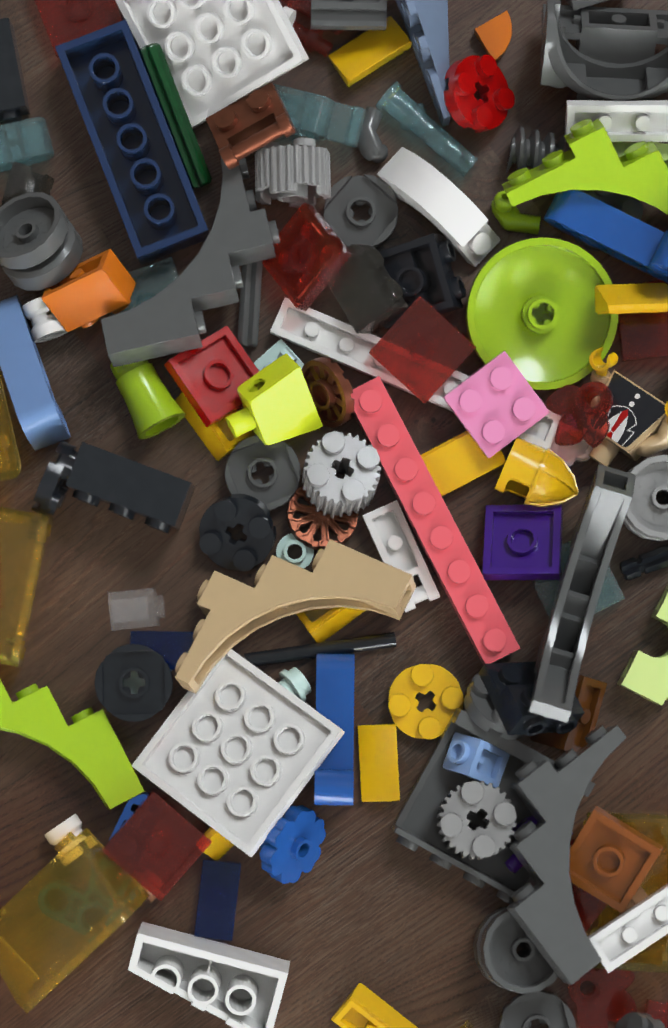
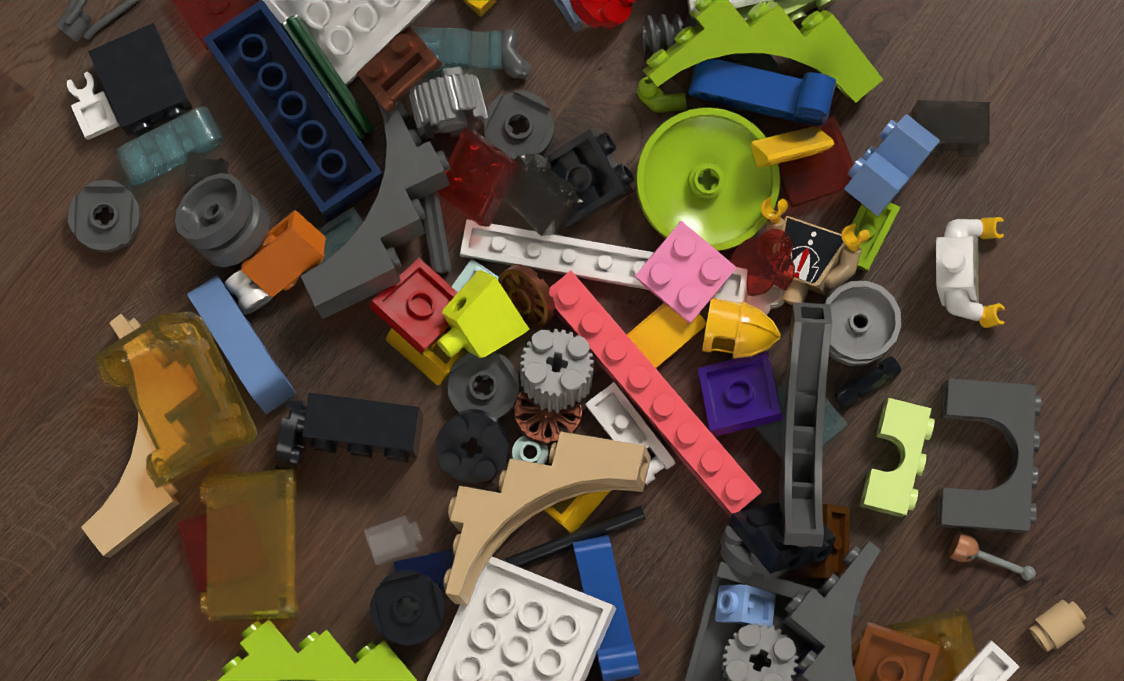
camera: 10 degrees left, 5 degrees down
(147, 398) = (360, 342): lime plant -> none
(295, 682) = (559, 573): light aqua plate -> none
(378, 763) = (654, 631): yellow slope -> none
(413, 118) = (546, 30): clear light blue pin -> none
(422, 349) = (605, 237): clear red plate -> none
(423, 679) = (677, 544): yellow plate -> none
(441, 203) = (592, 100): white arch -> none

